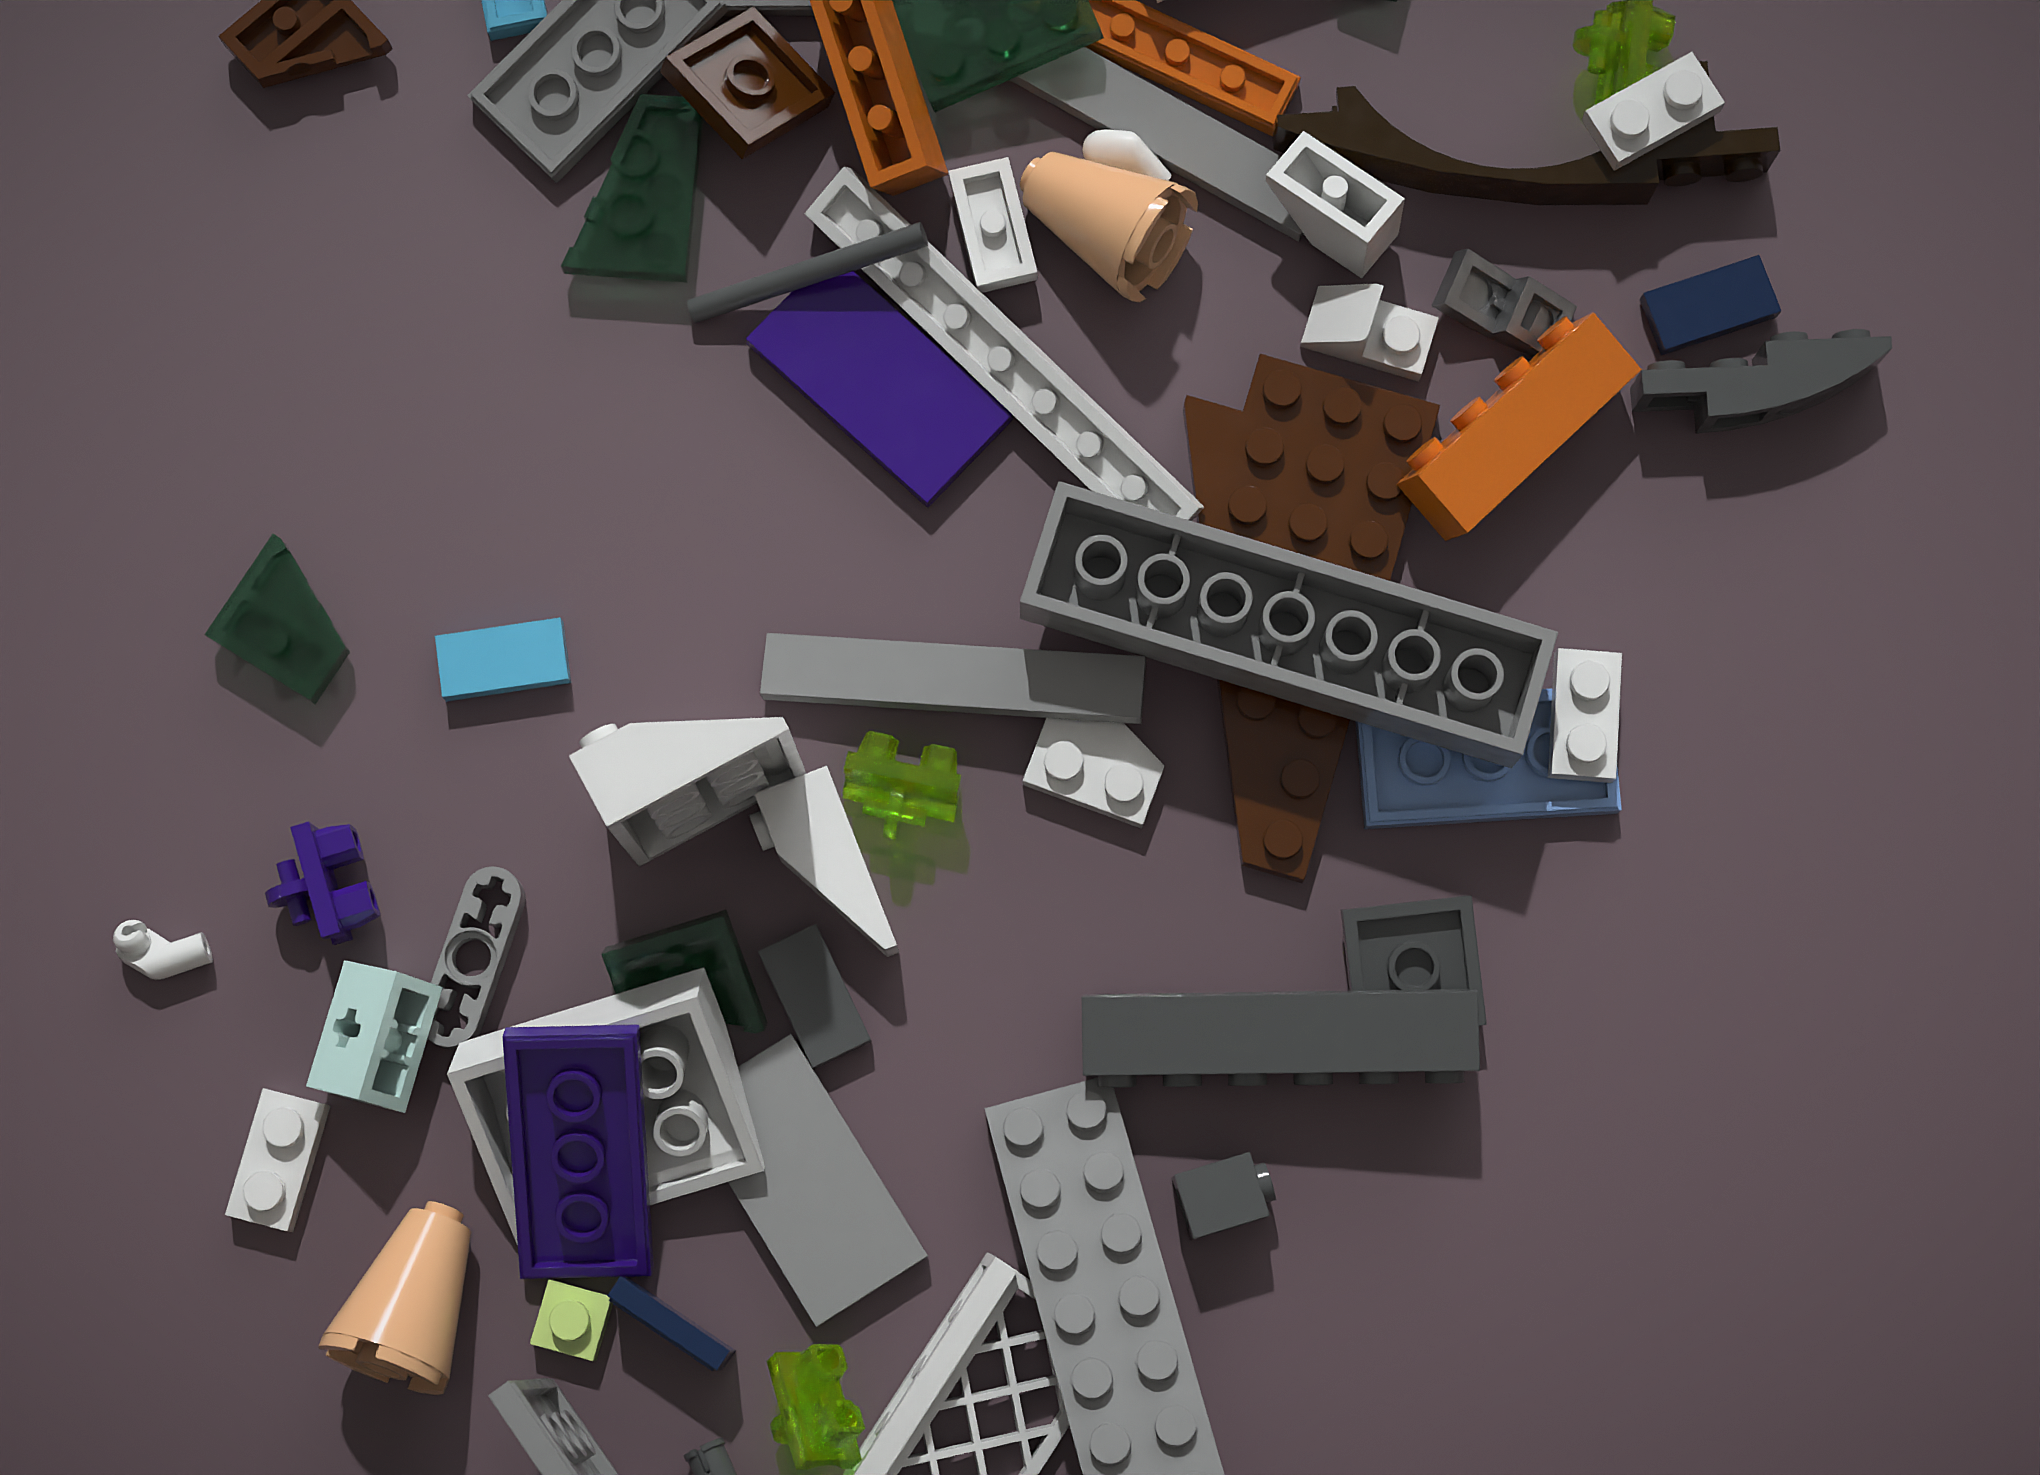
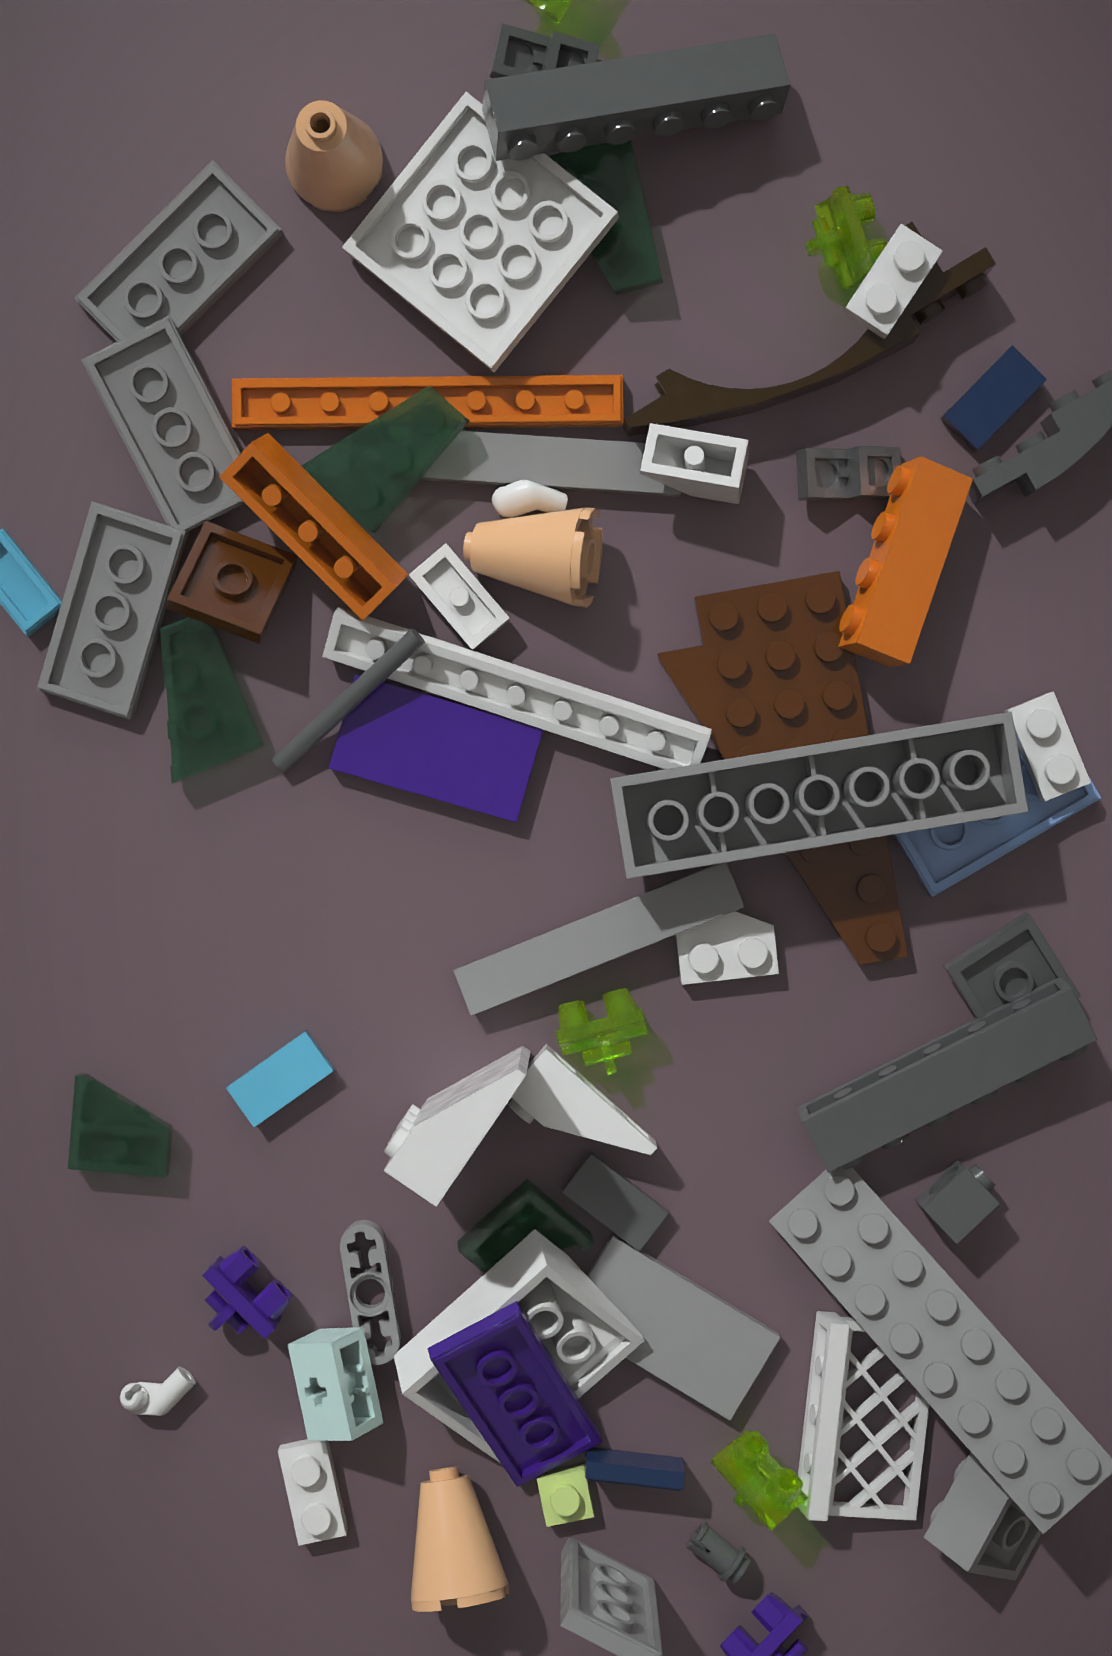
camera: 30 degrees left, 10 degrees up
(1368, 331) = (762, 539): white slope -> none

